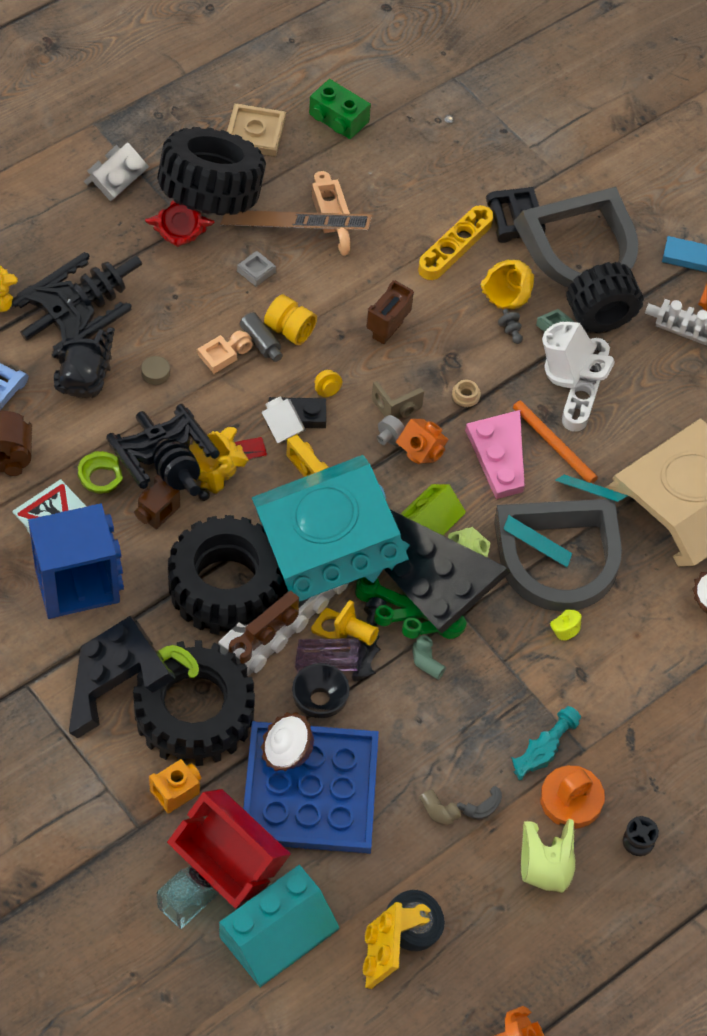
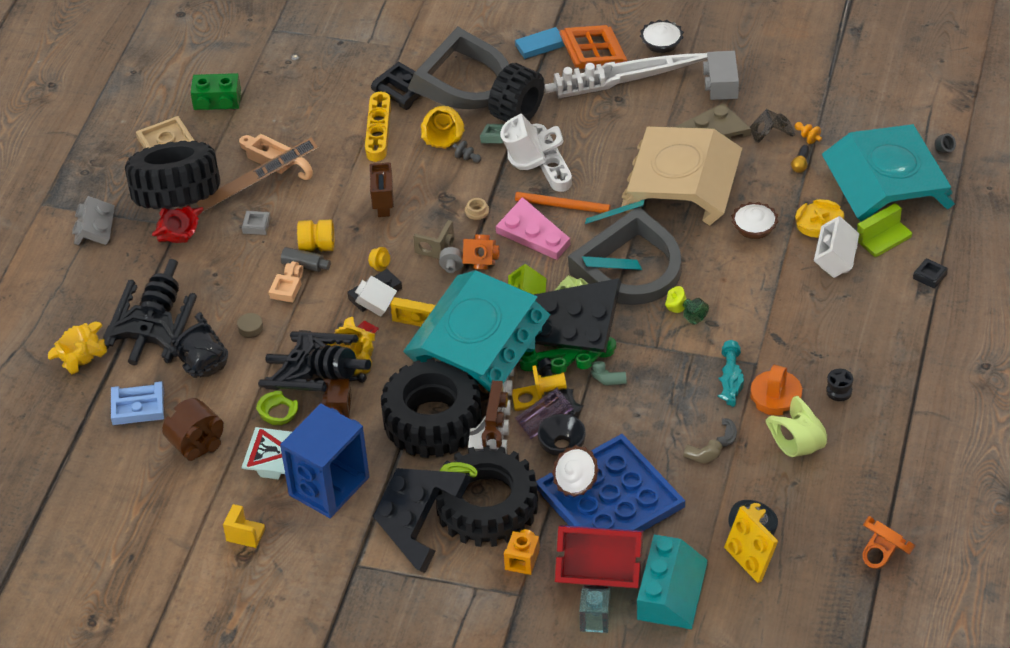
camera: 30 degrees left, 10 degrees down
(572, 650) = (695, 310): none -> clear green tile

